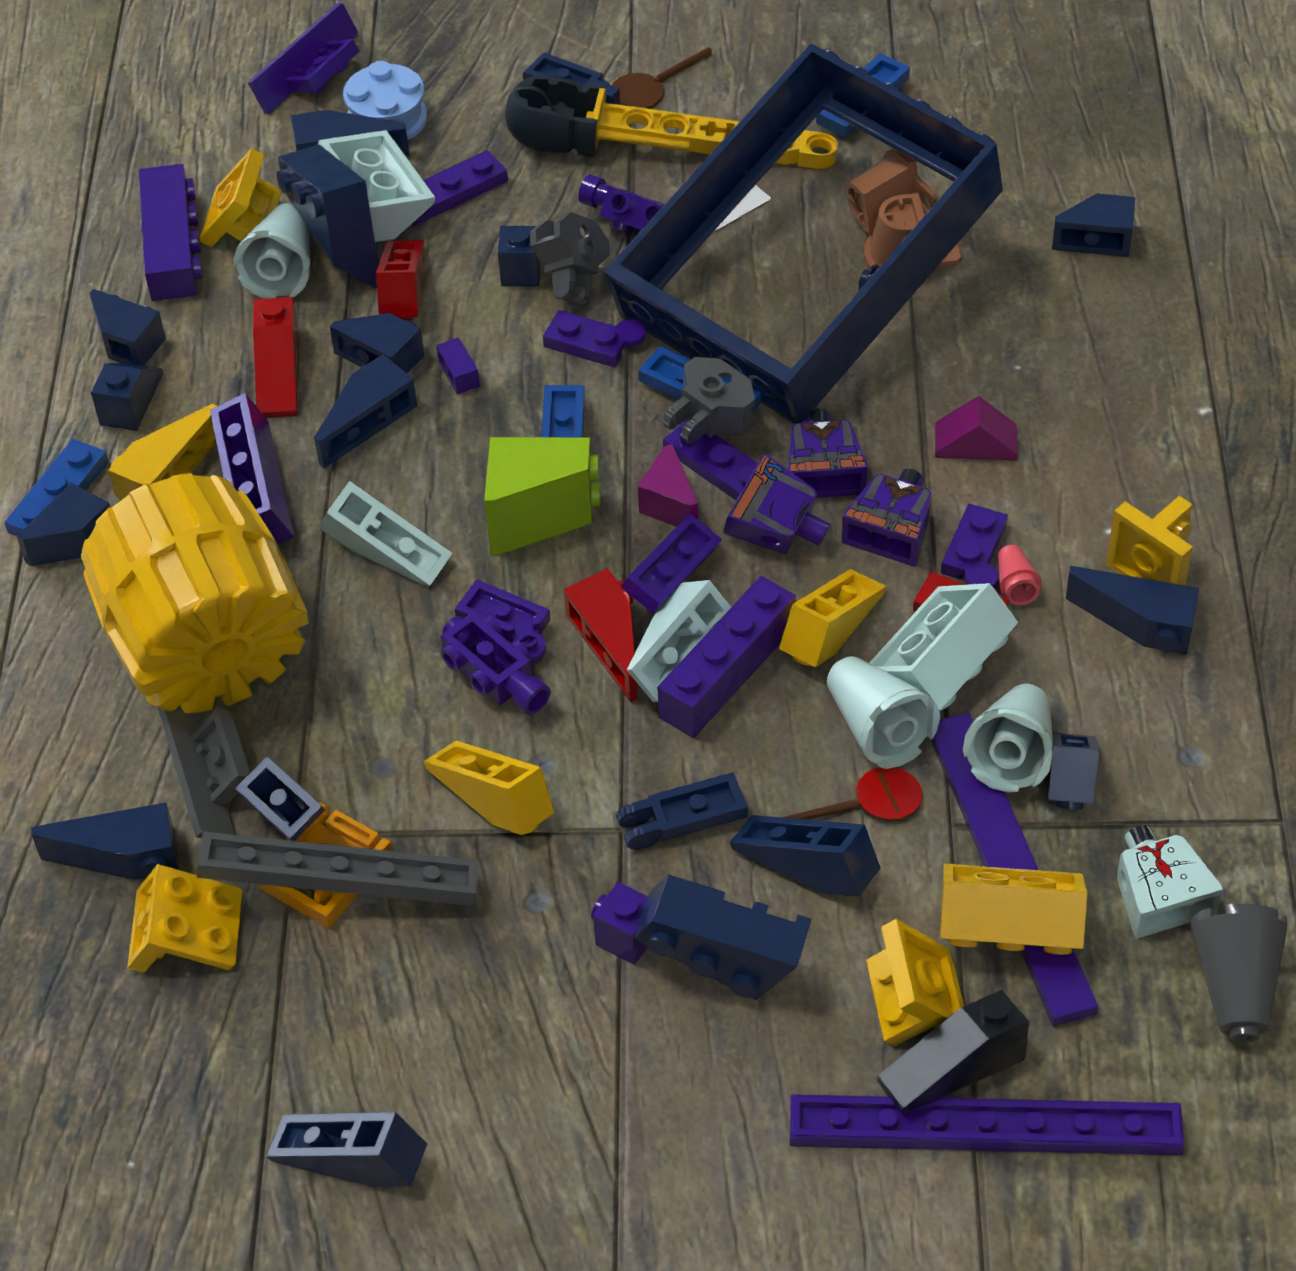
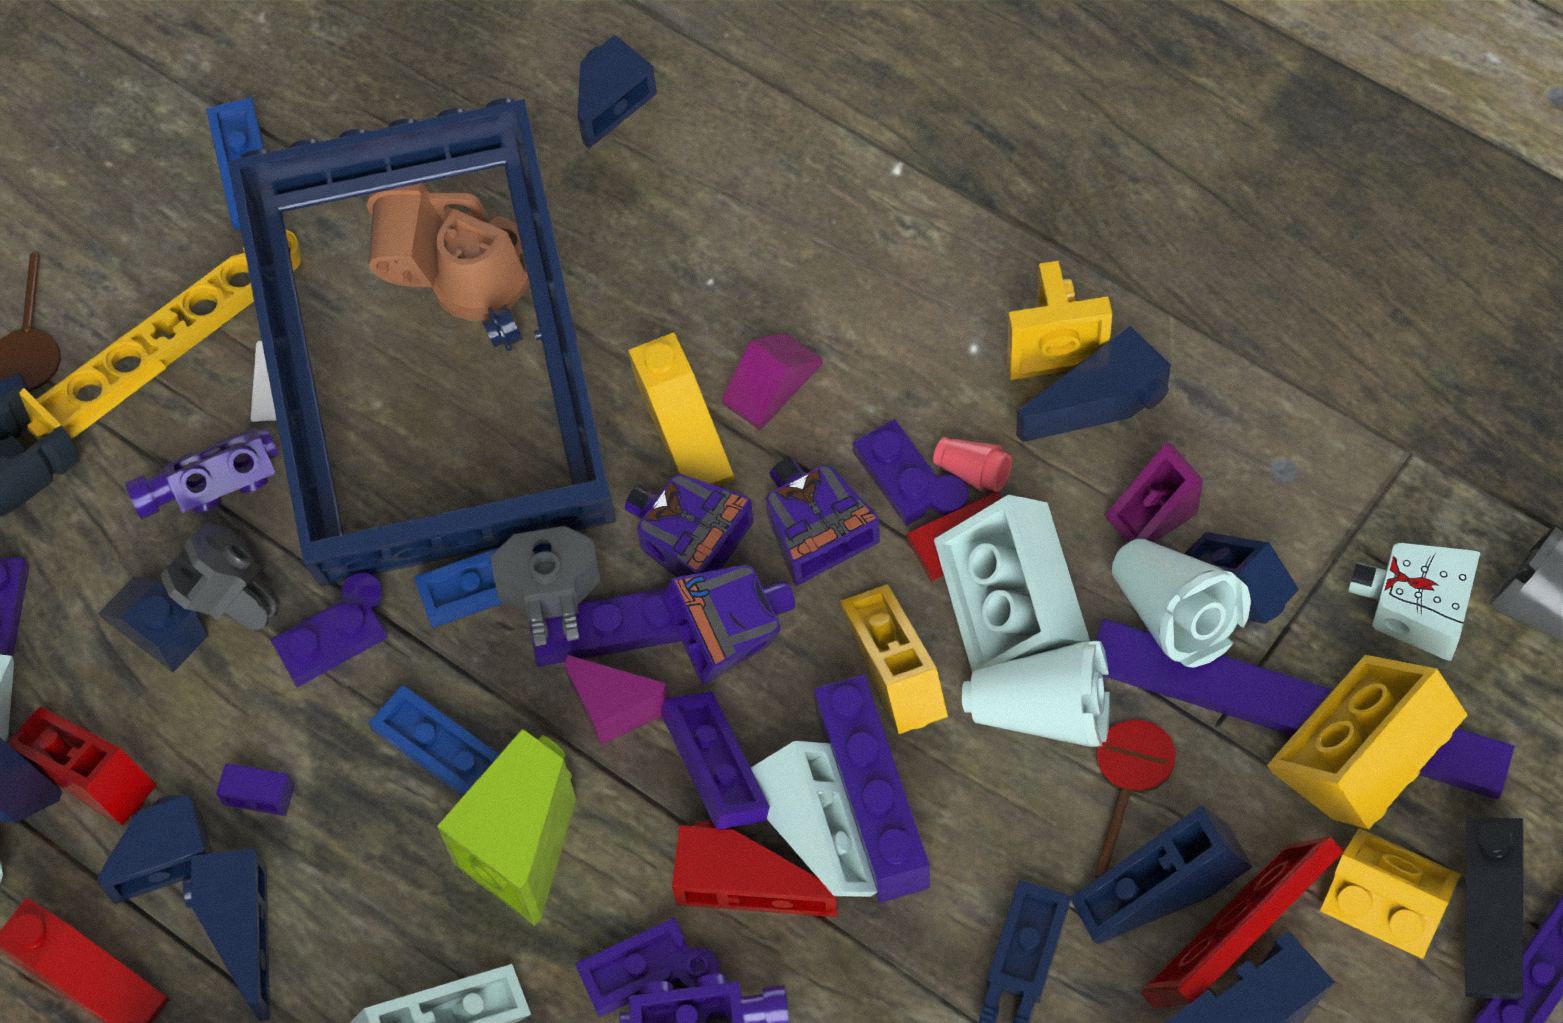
camera: 50 degrees left, 10 degrees up
(818, 904) = (1240, 922): none -> red tile
(901, 401) = (679, 410): none -> yellow slope
(1086, 689) = (1158, 498): none -> magenta slope

